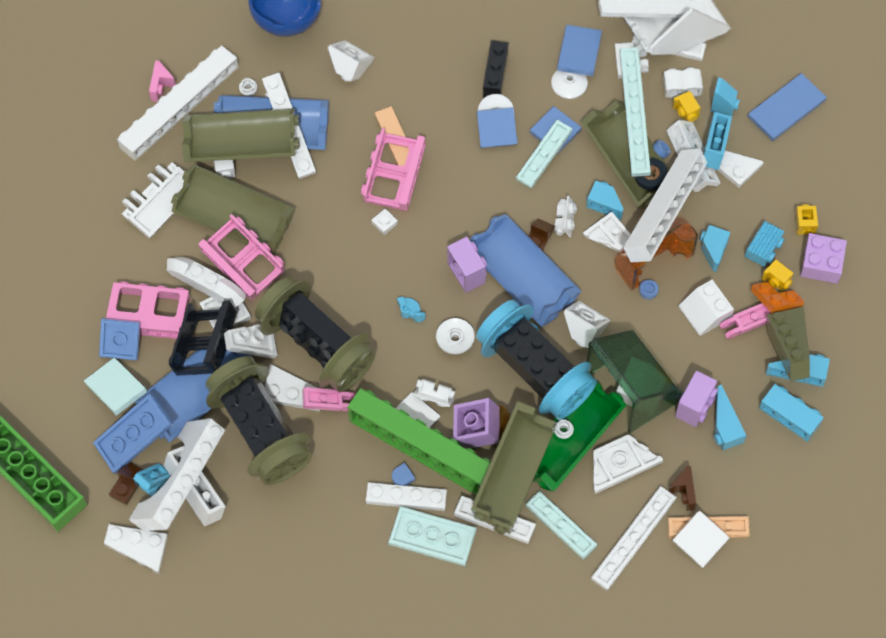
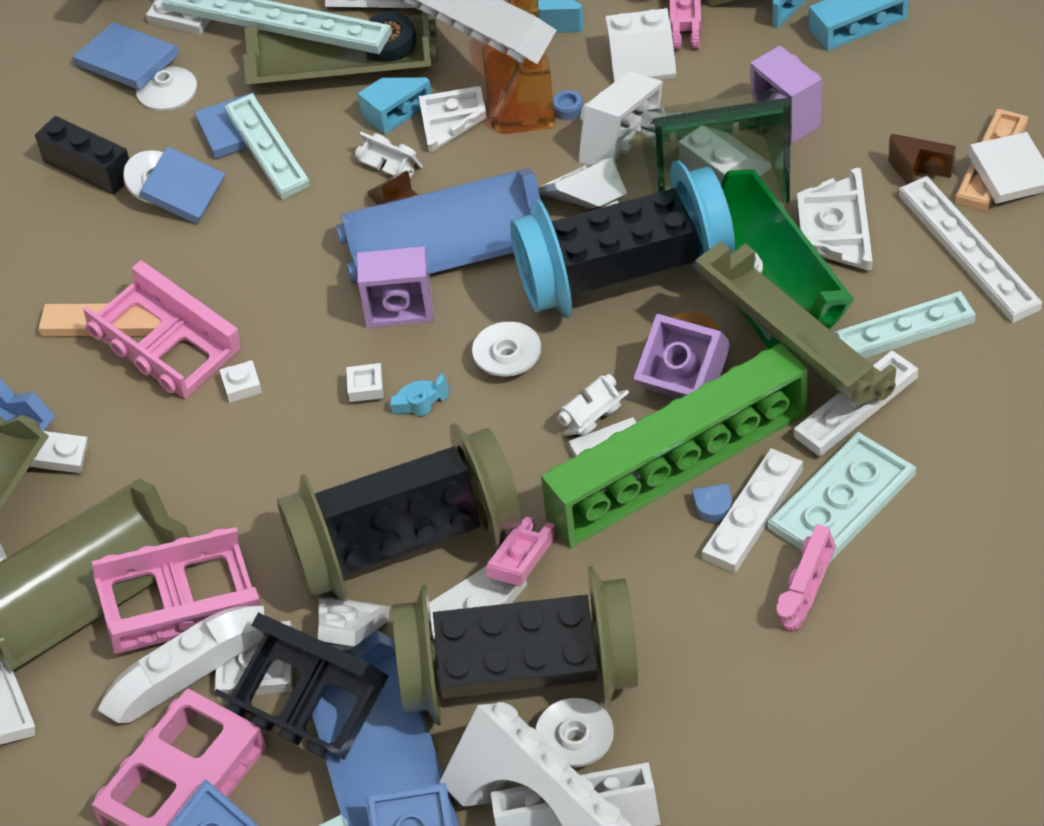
camera: 60 degrees left, 15 degrees down
(230, 463) = (577, 719): none -> white dish
(367, 537) = (806, 580): none -> bright pink hinge
(406, 279) = (365, 382): none -> white plate
(644, 318) = (616, 116): none -> white wedge
(661, 149) = (359, 13): medium blue tile -> none
(727, 425) = (846, 83): medium azure slope -> none

